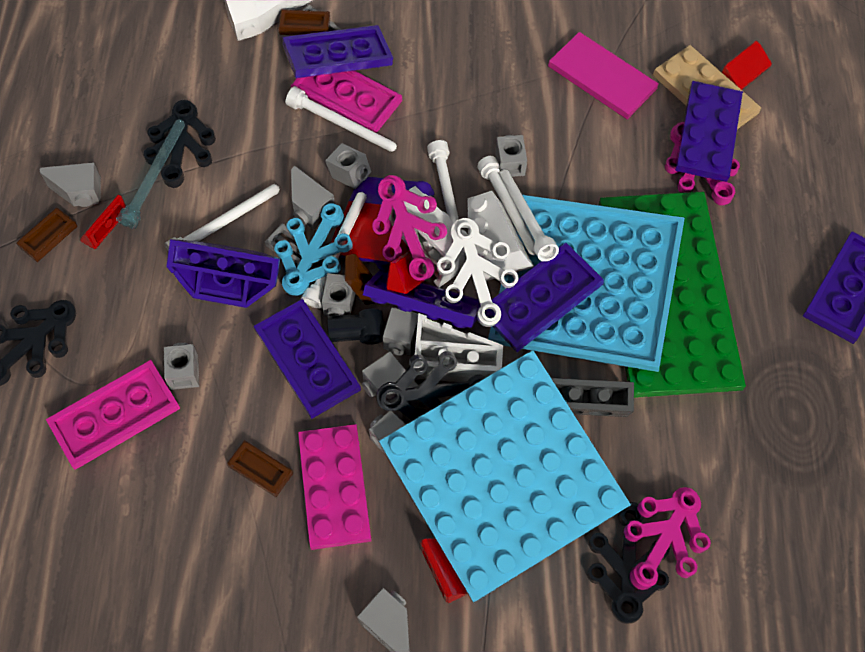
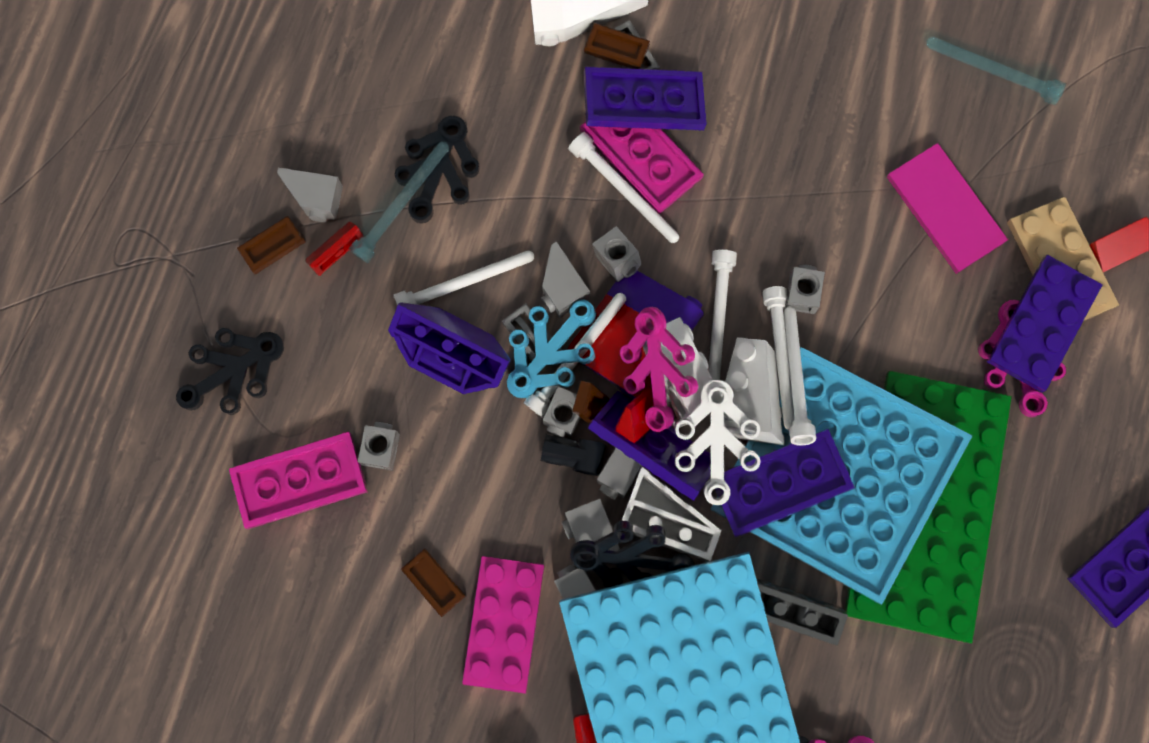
camera: 20 degrees right, 15 degrees up
(307, 358) = (511, 474): dark purple plate -> none

